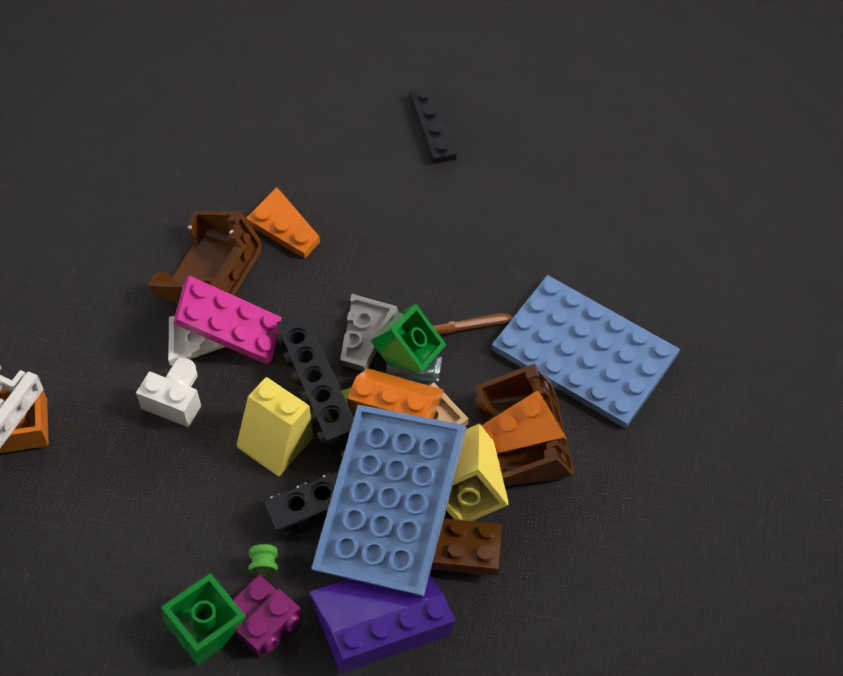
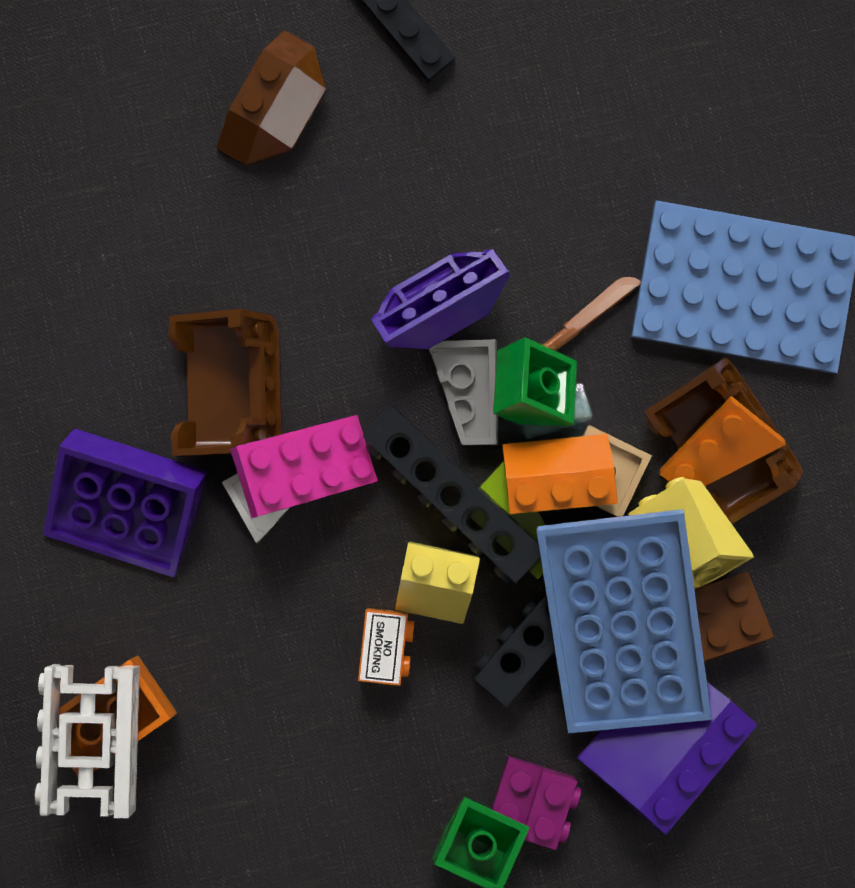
camera: 25 degrees left, 30 degrees up
(98, 304) = (123, 502): none -> dark purple slope
(171, 395) = (286, 587): white brick -> none
(214, 460) = (384, 646): none -> brick
(263, 560) = (505, 741): bright green wheel -> none
(284, 224) = (284, 272): orange wing -> none
(328, 133) = (273, 102): none -> reddish brown wedge
(373, 274) = (441, 300): none -> dark purple wedge

